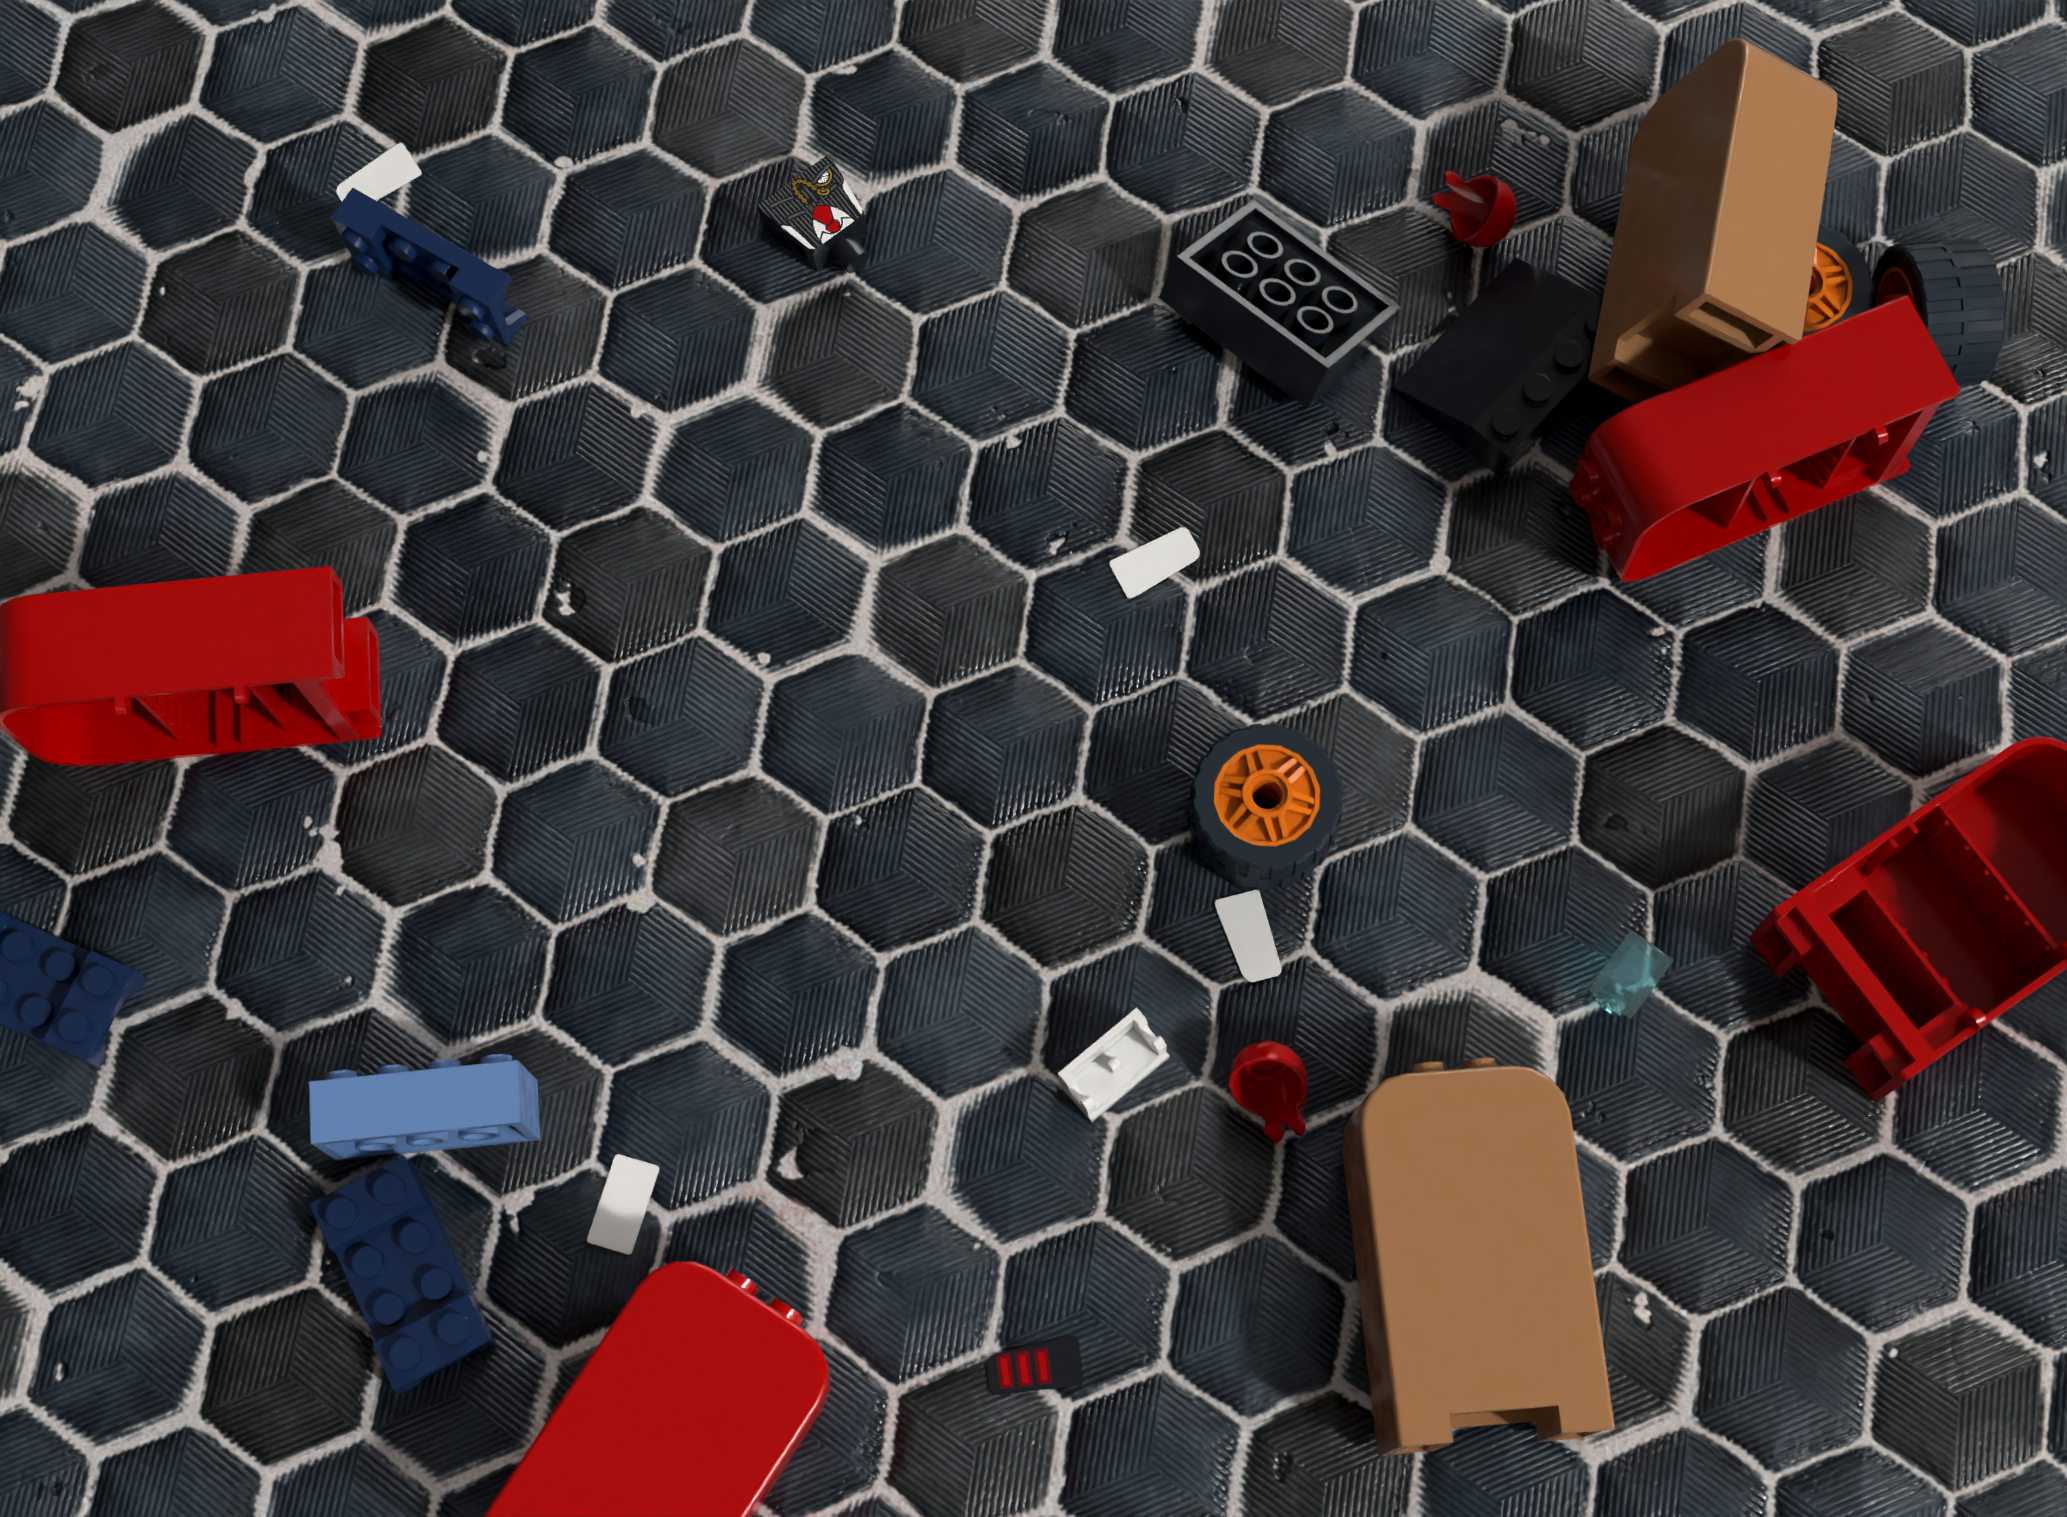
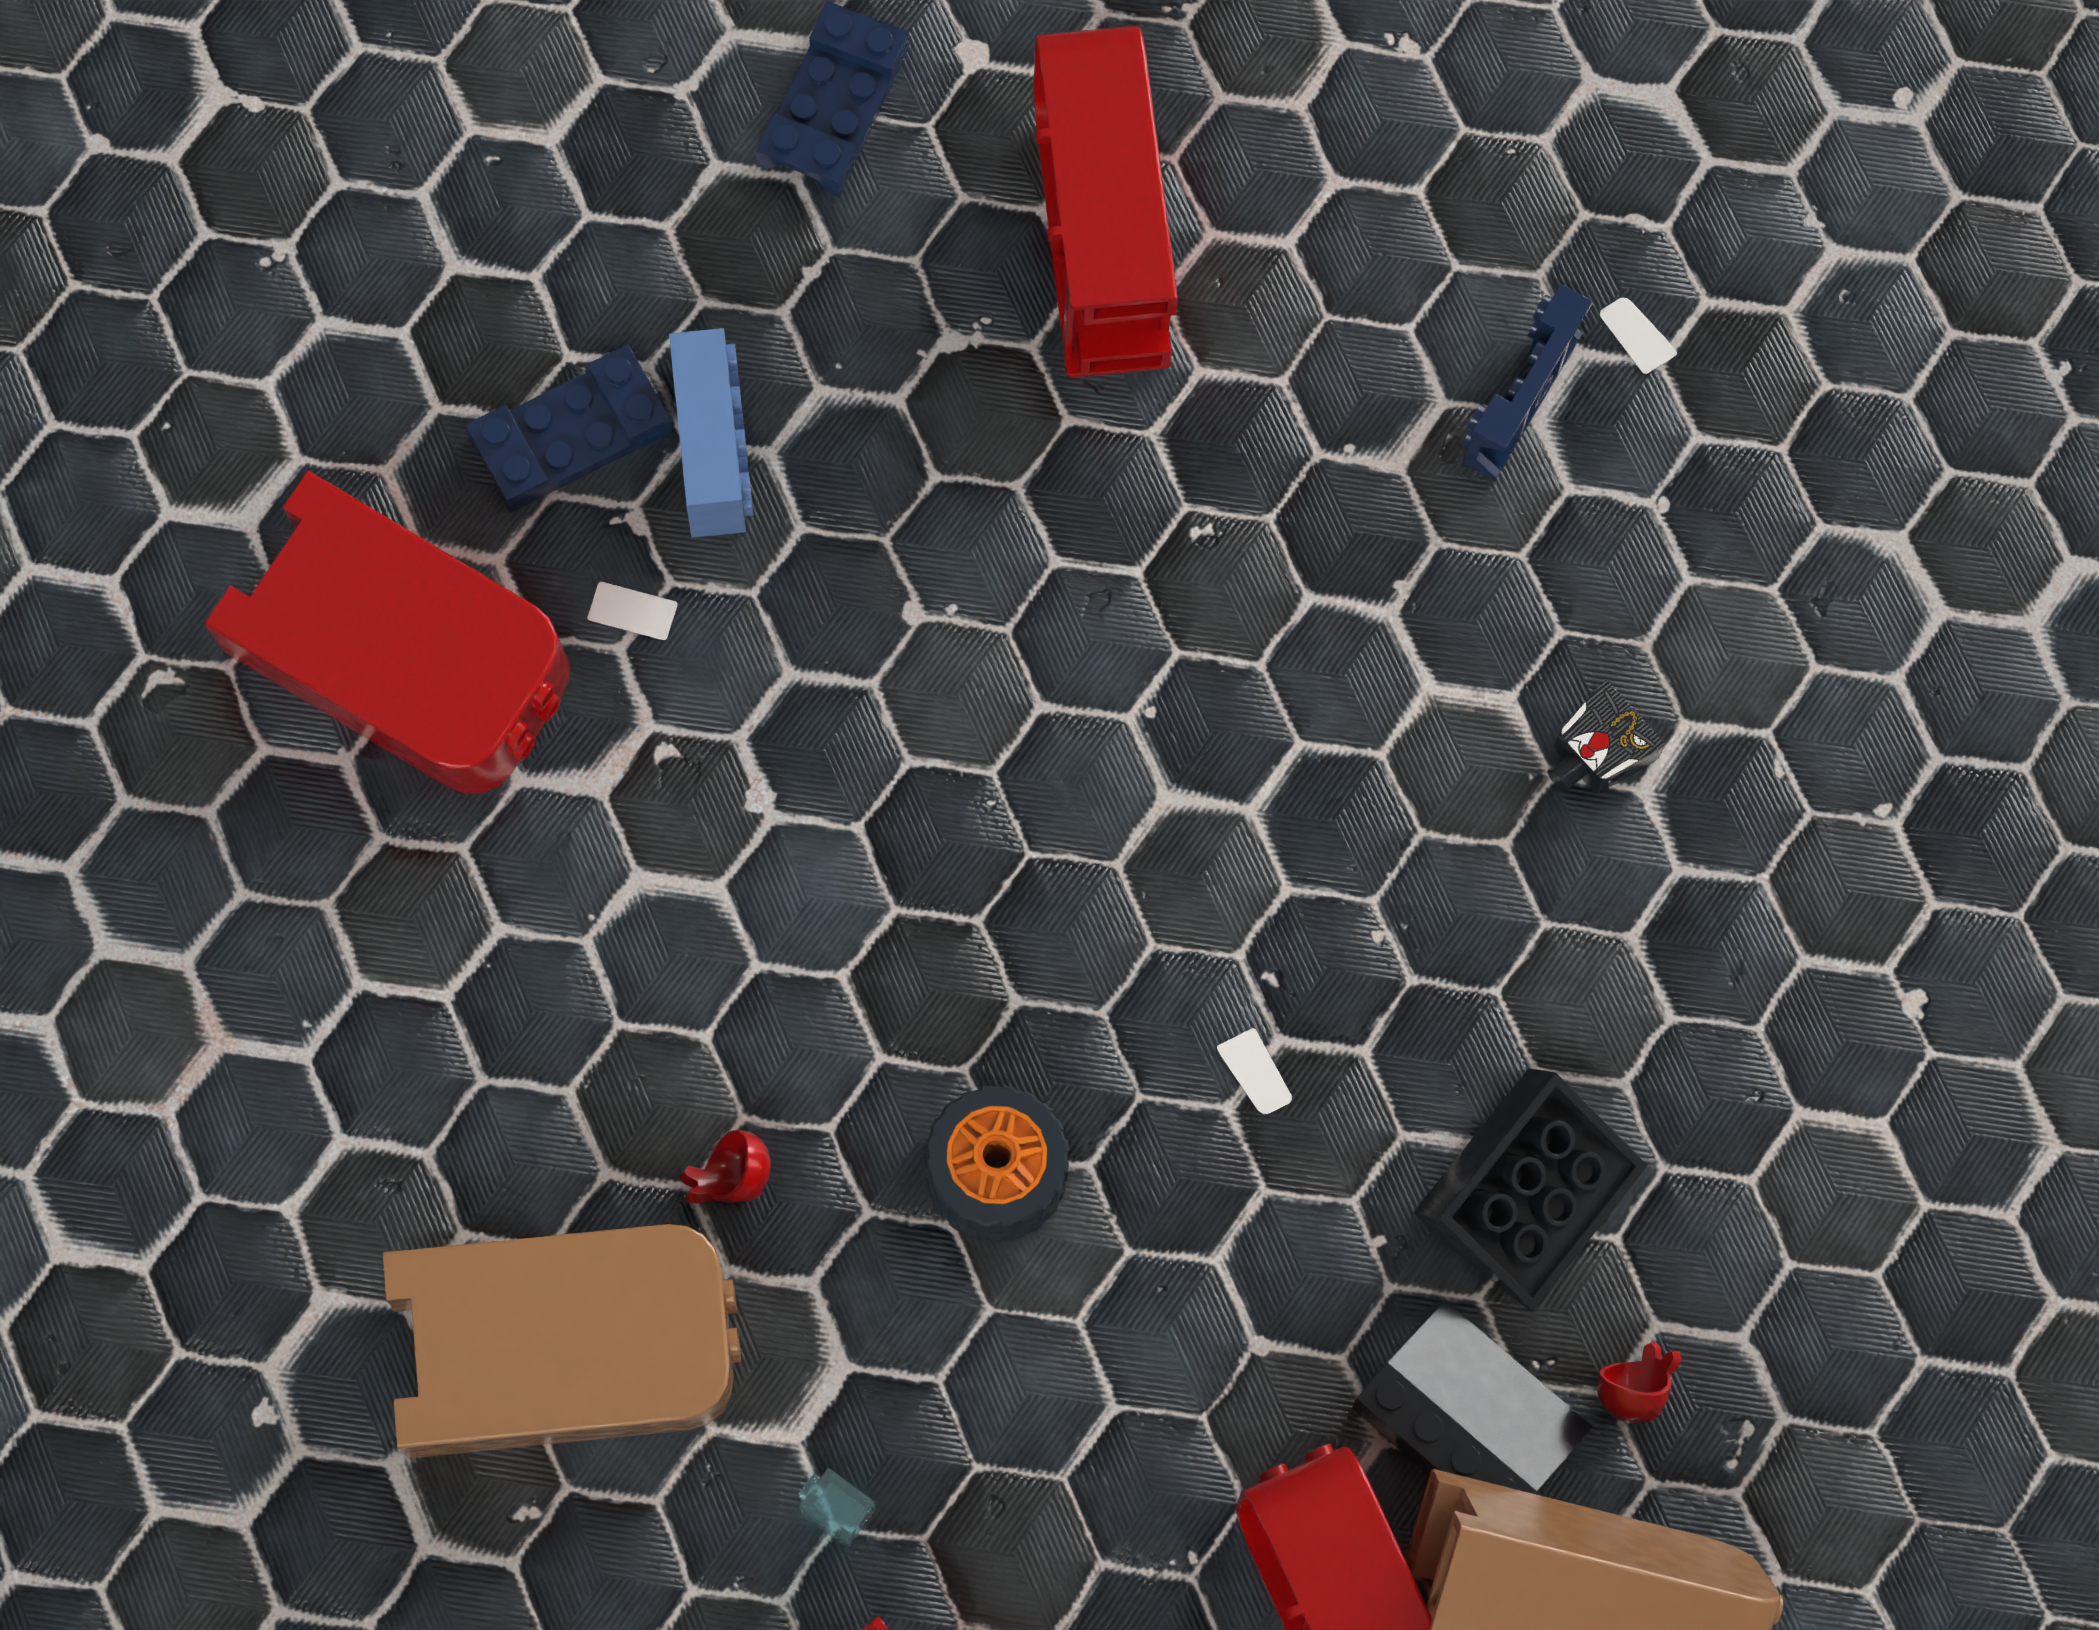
camera: 80 degrees right, 0 degrees up
(1036, 1367) = (482, 970): black sticker -> none
(1113, 1065) = (752, 1030): white hinge -> none
(1249, 935) = (881, 1159): white sticker -> none

